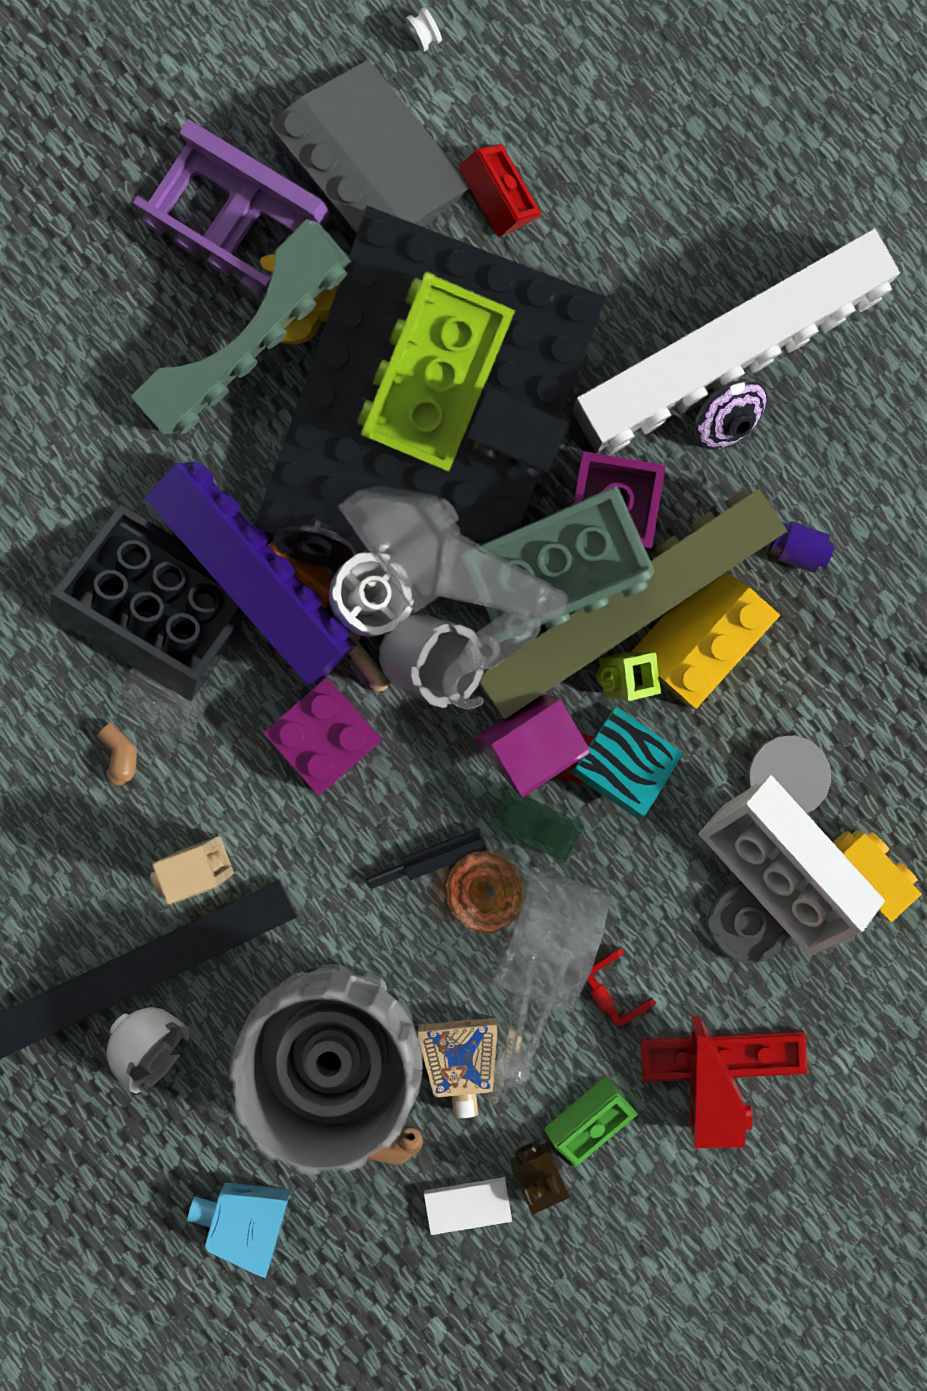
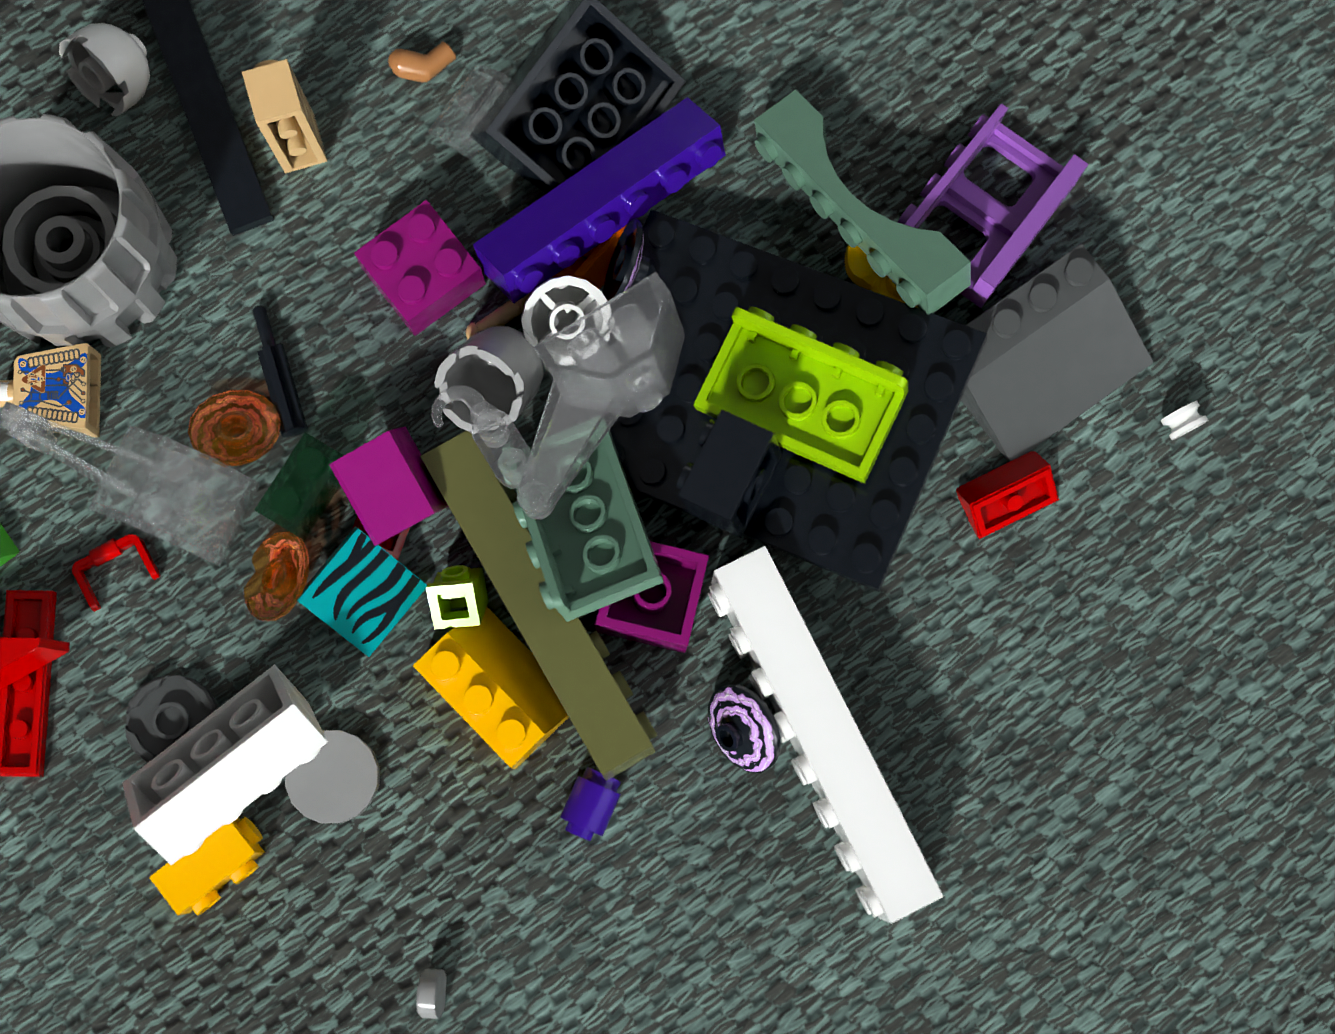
camera: 95 degrees right, 10 degrees down
(619, 839) = (279, 576): none -> clear orange dish

